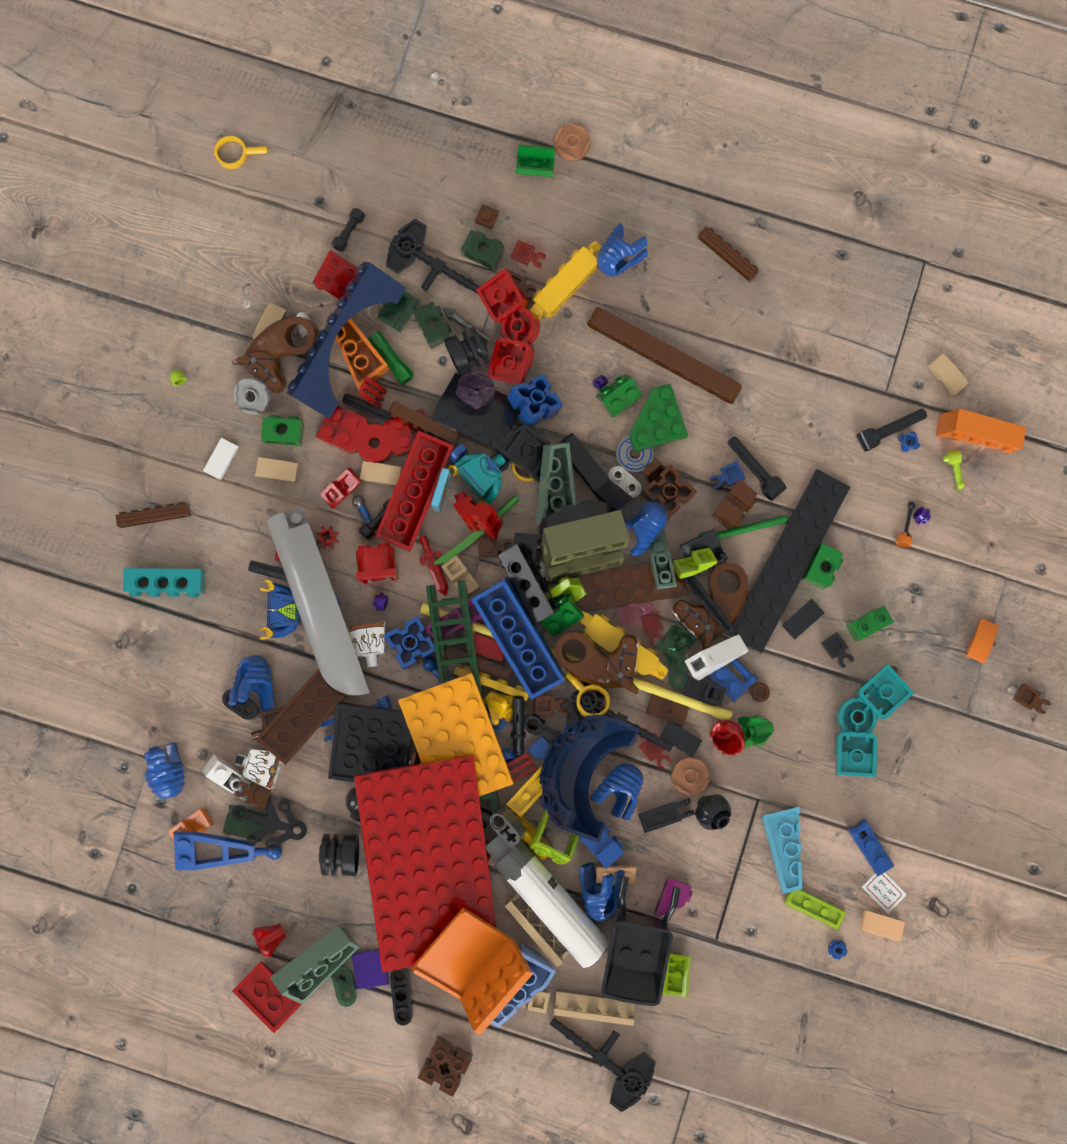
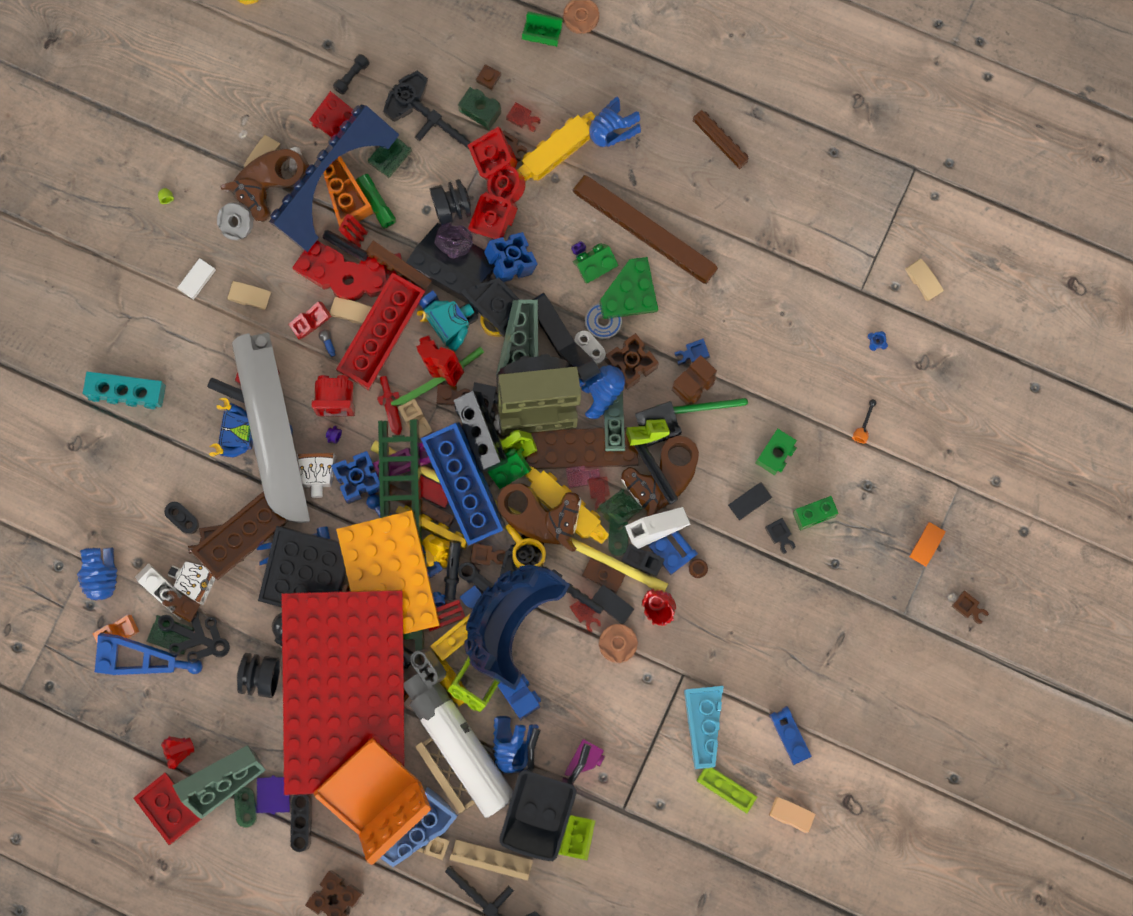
camera: 10 degrees right, 5 degrees down
(153, 515) = (122, 325): reddish brown piece -> none
(254, 676) = (197, 491): blue hair -> none
(292, 436) = (270, 263): green brick -> none
(326, 532) = (289, 361): red gear -> none
(367, 530) = (330, 364): black piece -> none
(427, 314) = (415, 164): clear green brick -> none
(441, 490) = (407, 332): medium azure tile -> none
(451, 314) = (441, 166): flat silver piece -> none
(622, 781) = (548, 638): blue hair -> none
(630, 872) = (544, 727): light nougat hinge -> none
(652, 471) = (618, 338): reddish brown plate -> none
(664, 815) = (586, 678): black hinge -> none
(713, 812) = (635, 679): black plant -> none
(756, 730) = (688, 604): green brick -> none
(772, 486) = (735, 367): black axle -> none
(789, 560) = (743, 442): black plate -> none
(837, 944) = (749, 832): blue plate -> none
(872, 438) = (839, 332): black axle -> none
(874, 700) = (811, 590): teal plate -> none
(884, 891) = (799, 782): white sticker -> none
(922, 515) = (881, 414): dark purple plate -> none
(955, 458) = (920, 361): lime piece -> none
(980, 430) = (949, 337): orange wedge -> none

